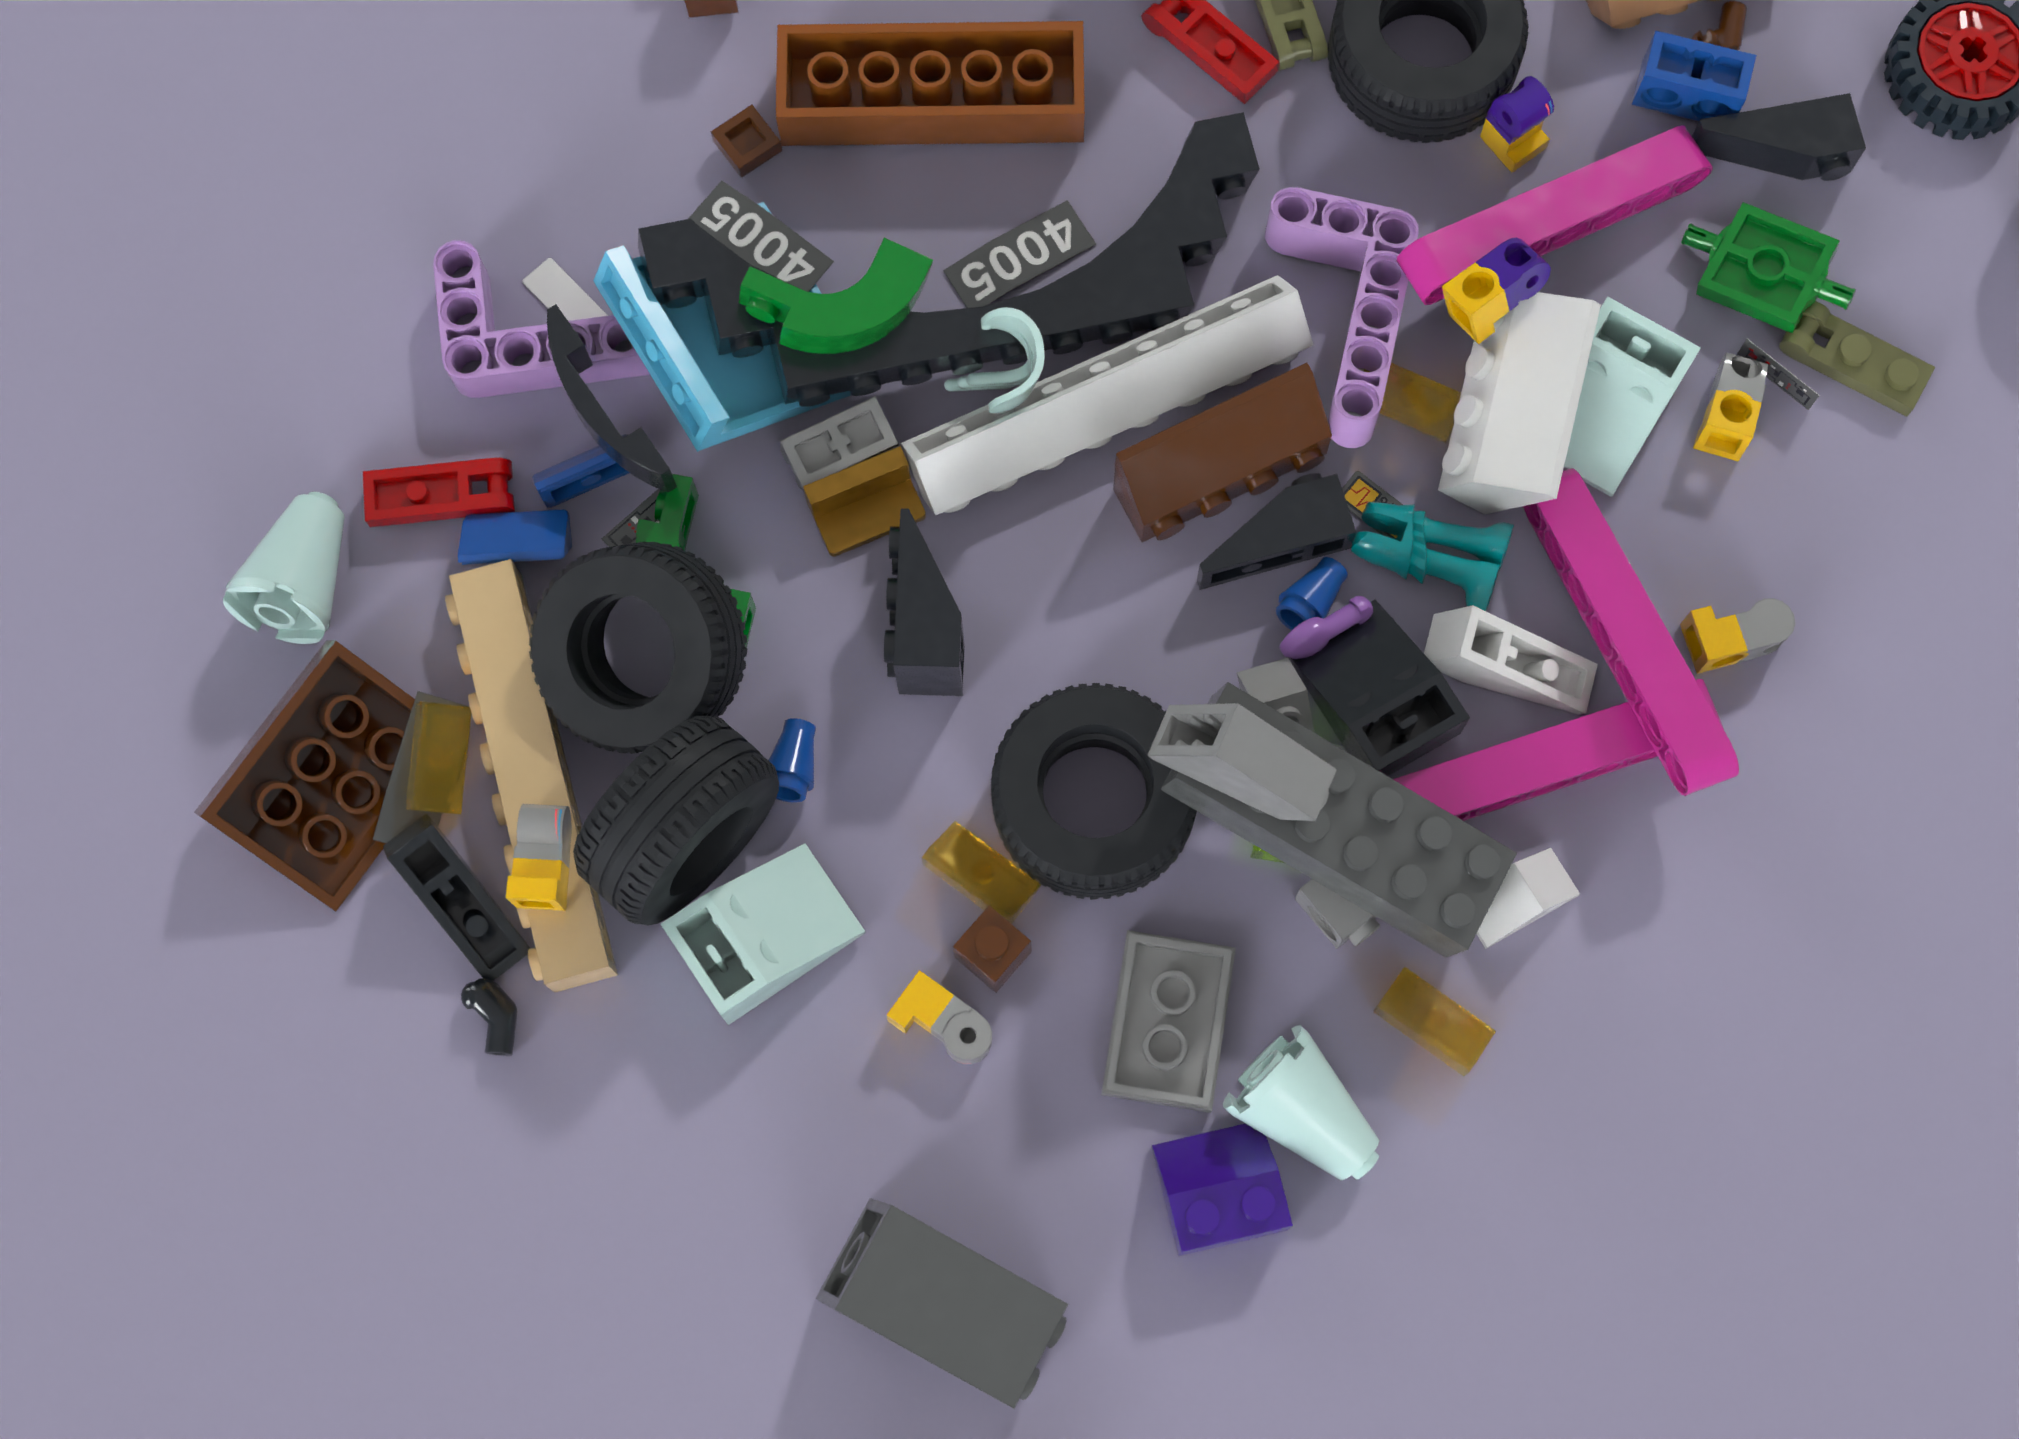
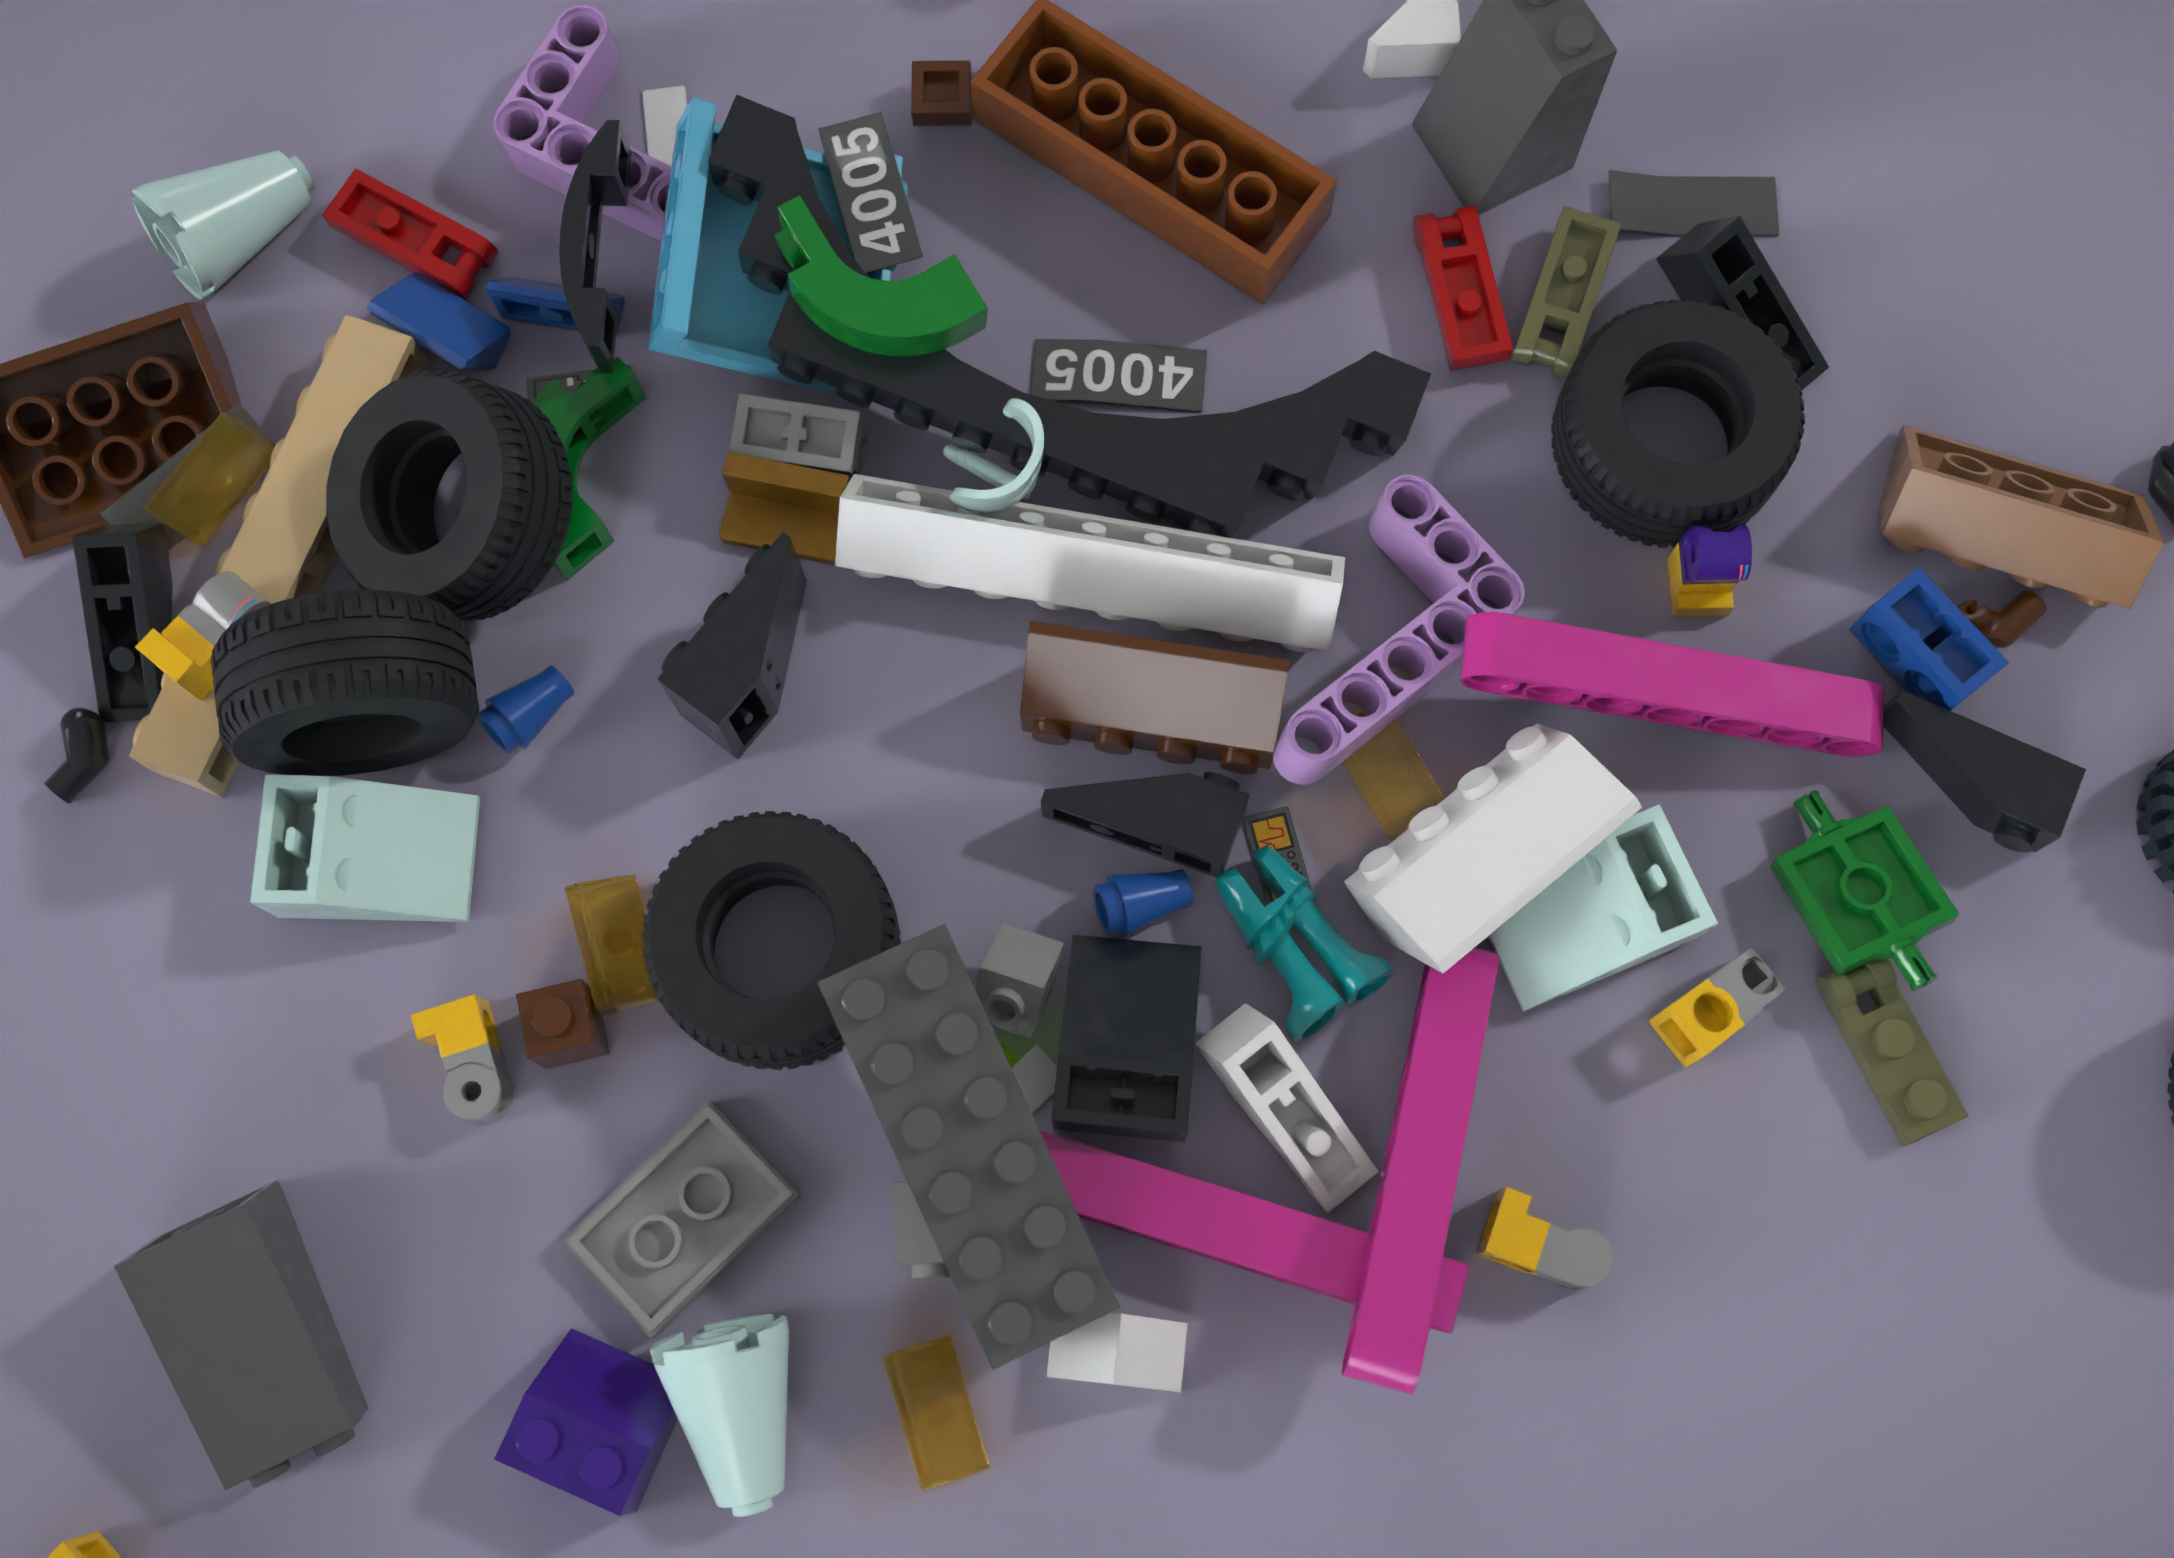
camera: 35 degrees right, 0 degrees up
(1243, 759) = (884, 1016): light grey slope -> none
(1316, 632) = (1108, 938): medium lavender piece -> none
(1494, 287) = (1544, 714): leg -> none
(1780, 376) = (1792, 1009): dark grey sticker -> none

